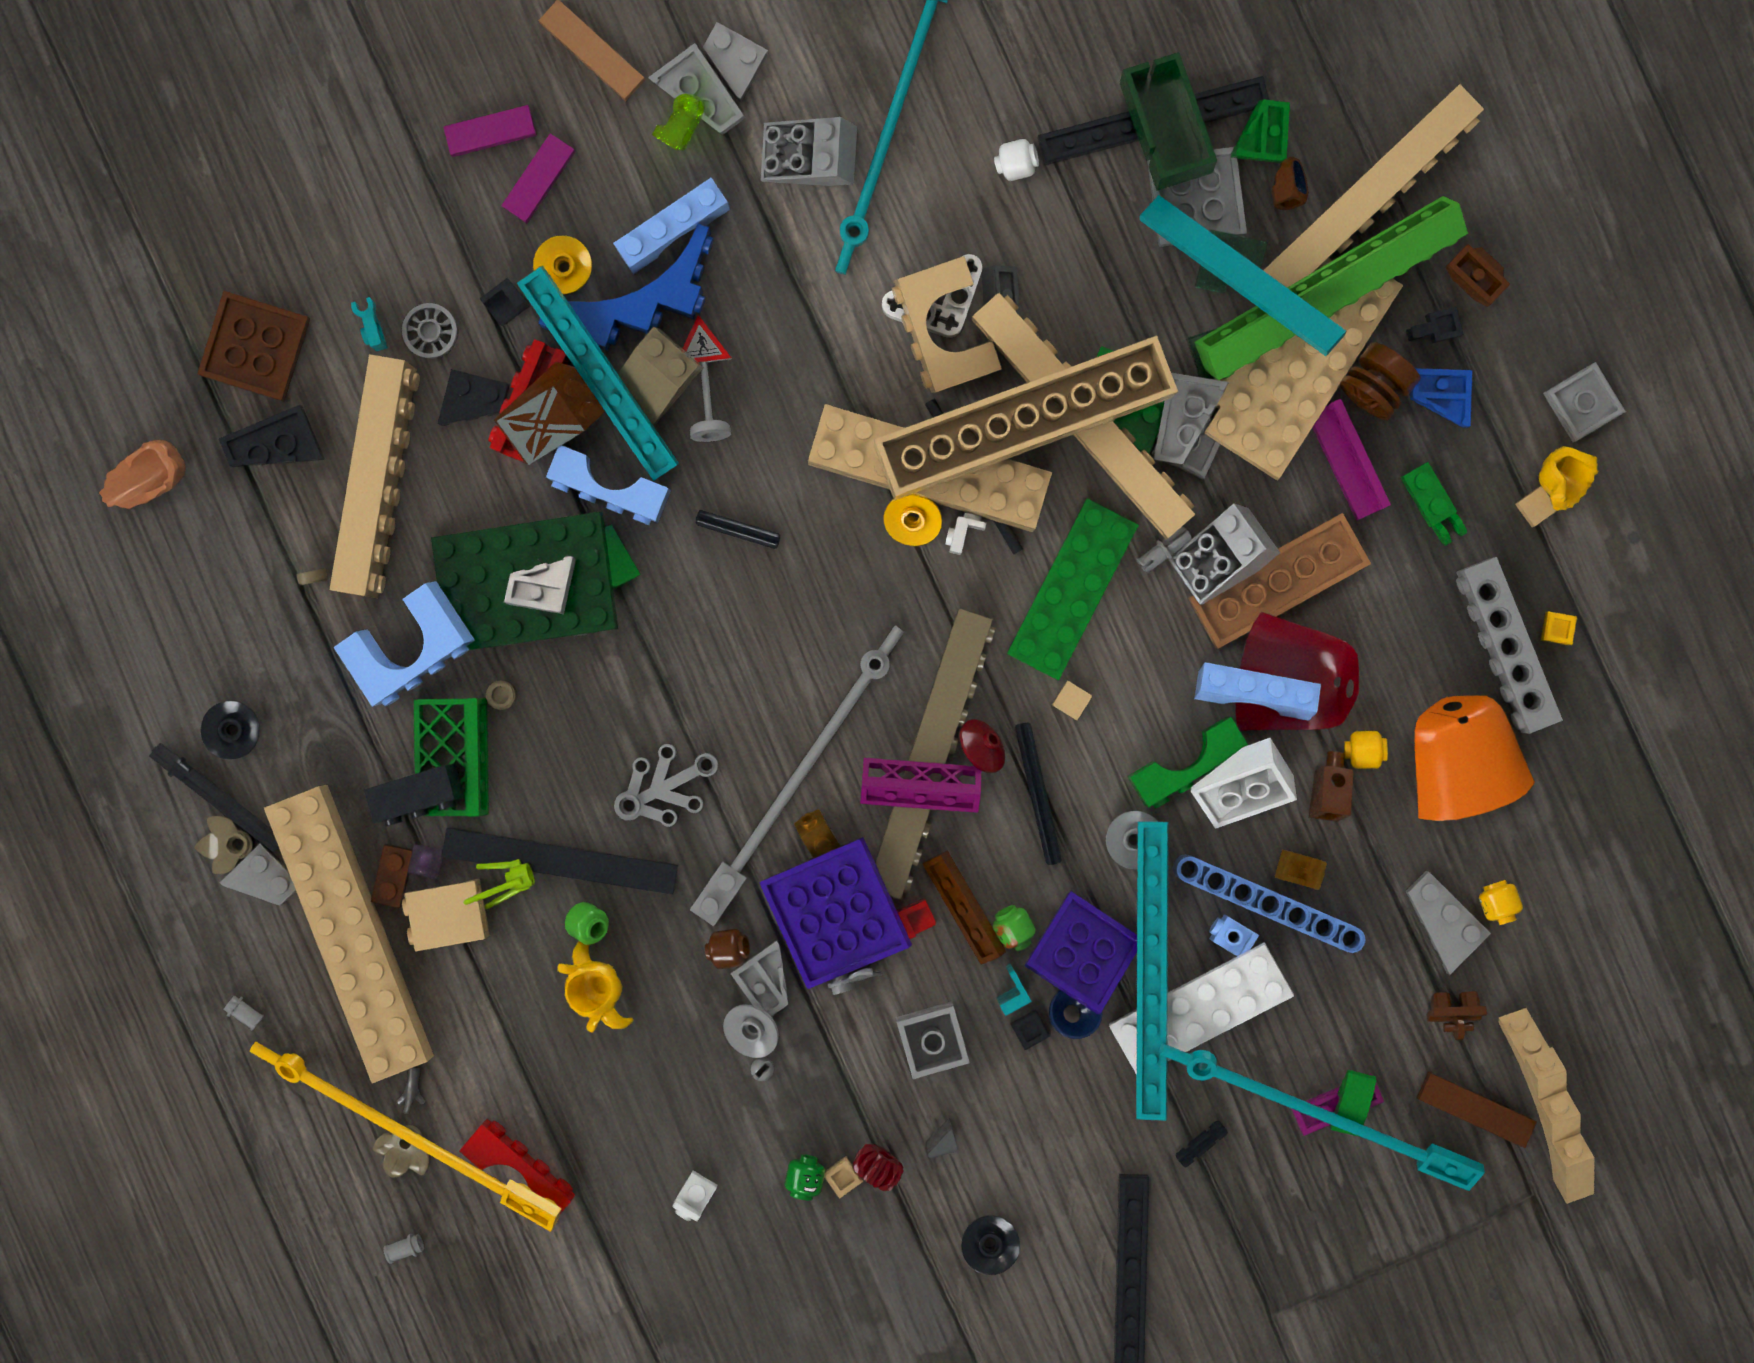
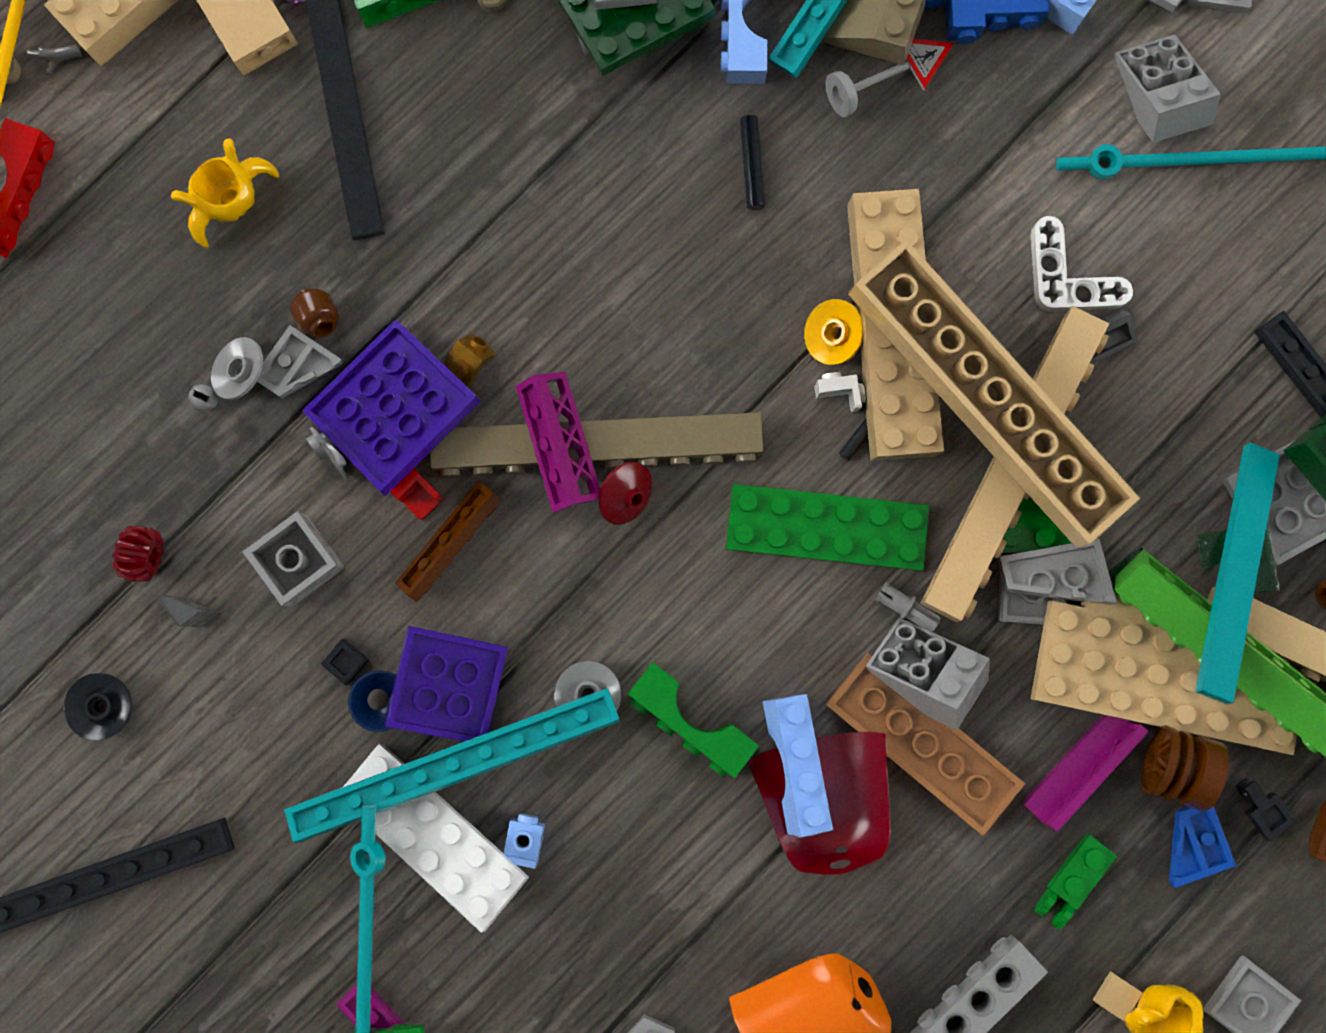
camera: 70 degrees right, 5 degrees down
(518, 879) = (310, 75): lime plant -> none
(586, 923) = (288, 159): bright green head -> none
(621, 564) = (672, 56): green slope -> none
(661, 788) = (458, 185): light grey plant -> none
(694, 1196) = (43, 377): white bracket -> none
(728, 878) = (389, 287): light grey bar -> none
(805, 1177) = (101, 482): green head -> none
(842, 1177) = (116, 520): tan tile -> none
(916, 295) = (1073, 245): tan arch -> none
(1014, 927) = (445, 601): bright green head -> none
(1014, 998) = (373, 631): teal panel -> none
(1017, 159) = (1250, 297): white head -> none
(1038, 793) = (598, 574): black axle -> none
(1072, 700) = (710, 571): tan tile -> none
(1201, 1143) = (287, 894): black axle -> none
(1246, 784) = (692, 791): white slope -> none
(1281, 908) = (573, 883): medium blue beam -> none
(1300, 869) = (623, 887): pearl gold bracket -> none
(1332, 801) = (709, 888): reddish brown torso -> none
(1366, 749) = (780, 909): yellow head -> none

